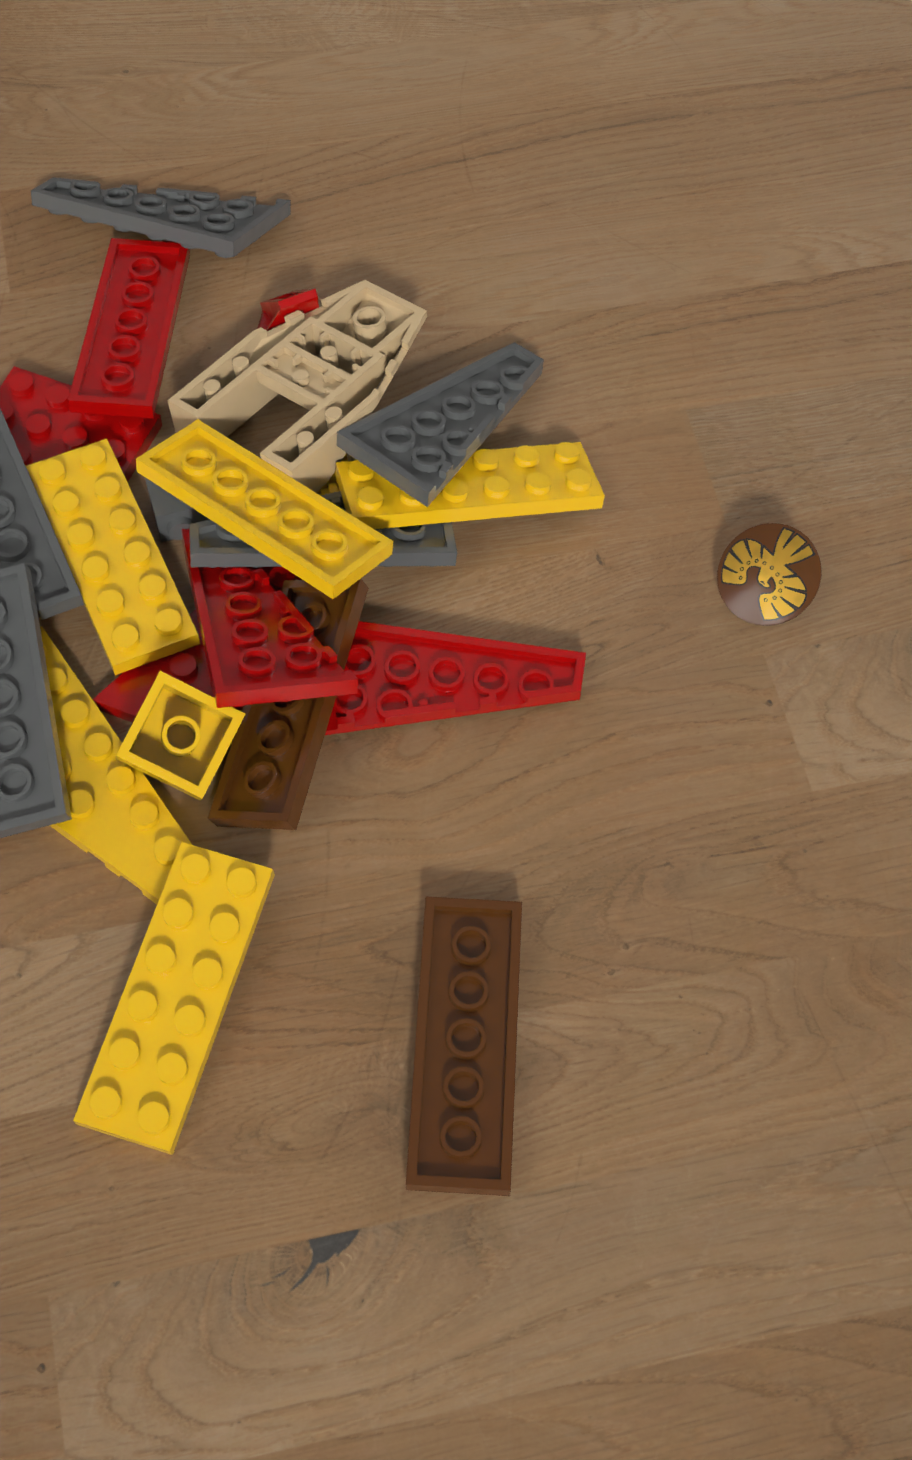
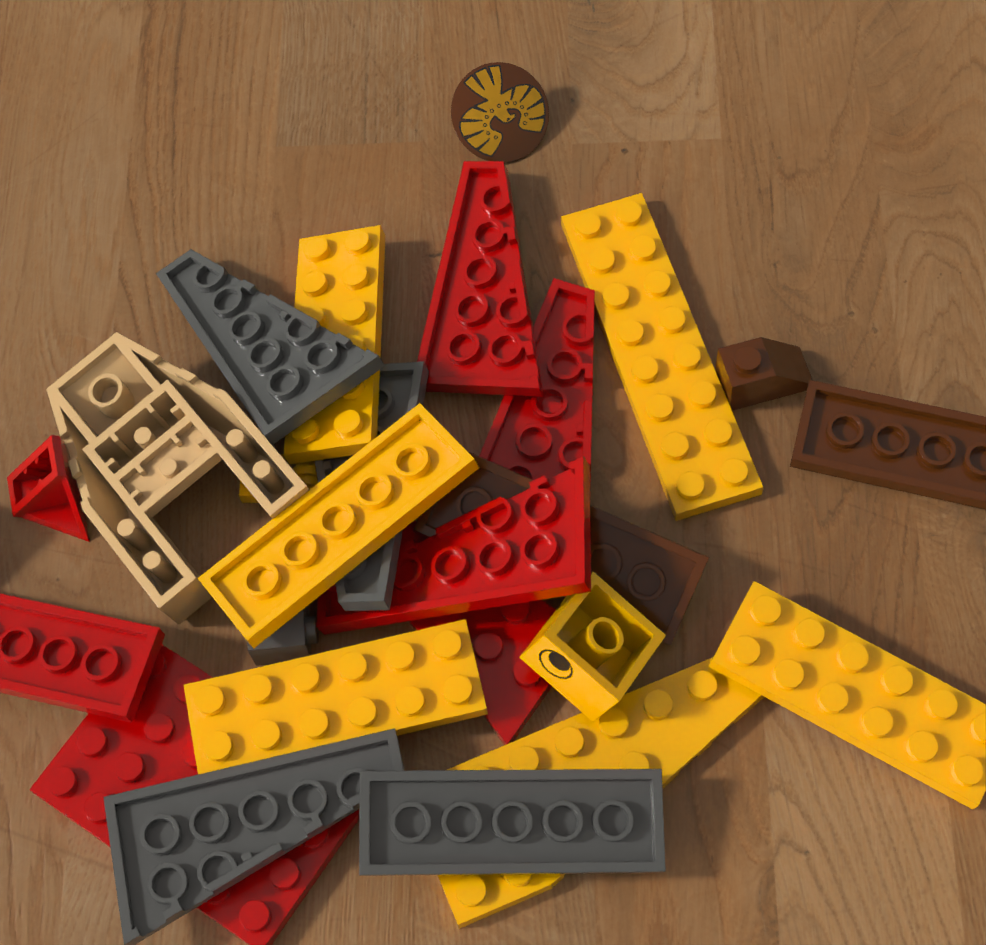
camera: 70 degrees left, 5 degrees up
(524, 858) = (760, 371): none -> reddish brown slope
(527, 598) = (479, 310): none -> red wing
(528, 767) = (661, 358): none -> yellow plate

